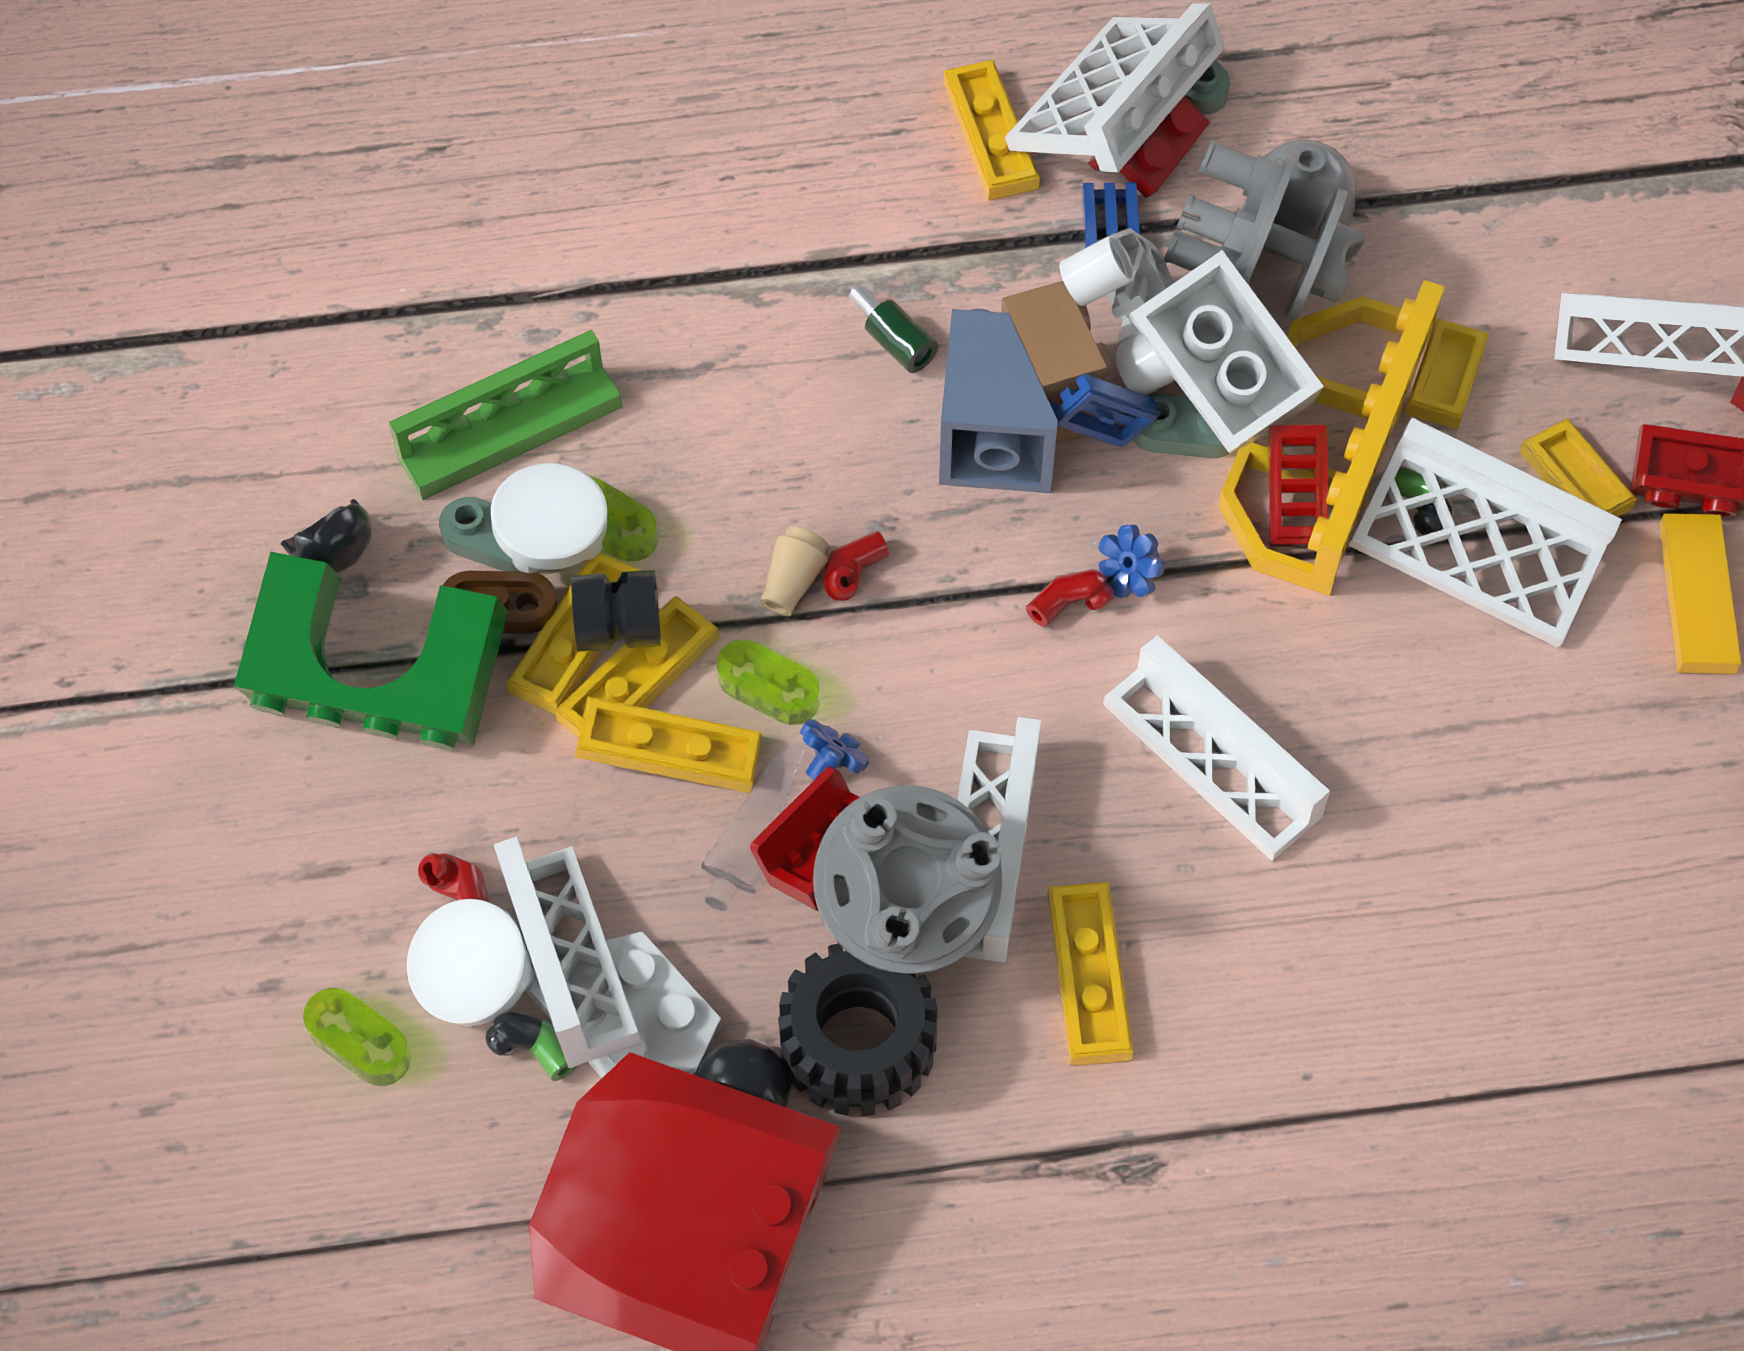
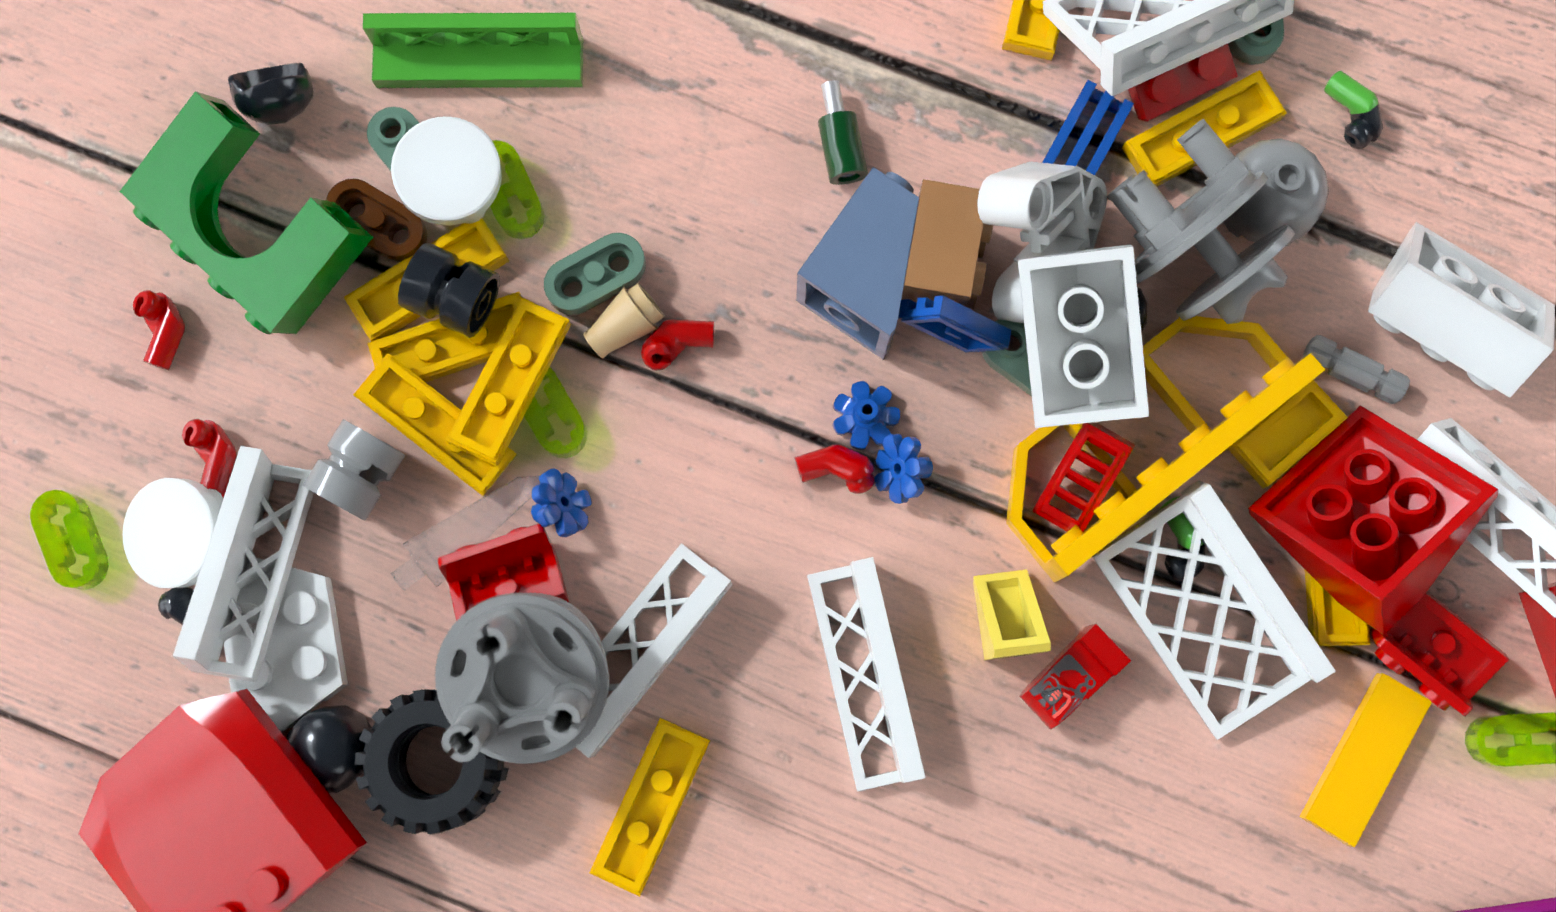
camera: 30 degrees right, 20 degrees up
(338, 796) = (164, 324): none -> red arm
(615, 817) = (354, 470): none -> light grey wheel
(719, 667) = (509, 382): none -> yellow tile
(735, 548) = (592, 269): none -> sand green plate
(1066, 542) = (863, 425): none -> blue plant
(1230, 131) = (1231, 113): none -> yellow tile
(1315, 637) = (1009, 616): none -> light yellow slope
(1334, 97) = (1363, 109): none -> arm
(1402, 648) = (1074, 675): none -> red leg
(1480, 294) = (1358, 370): none -> light grey axle
(1526, 207) = (1464, 311): none -> white slope
(1567, 391) = (1373, 516): none -> red slope

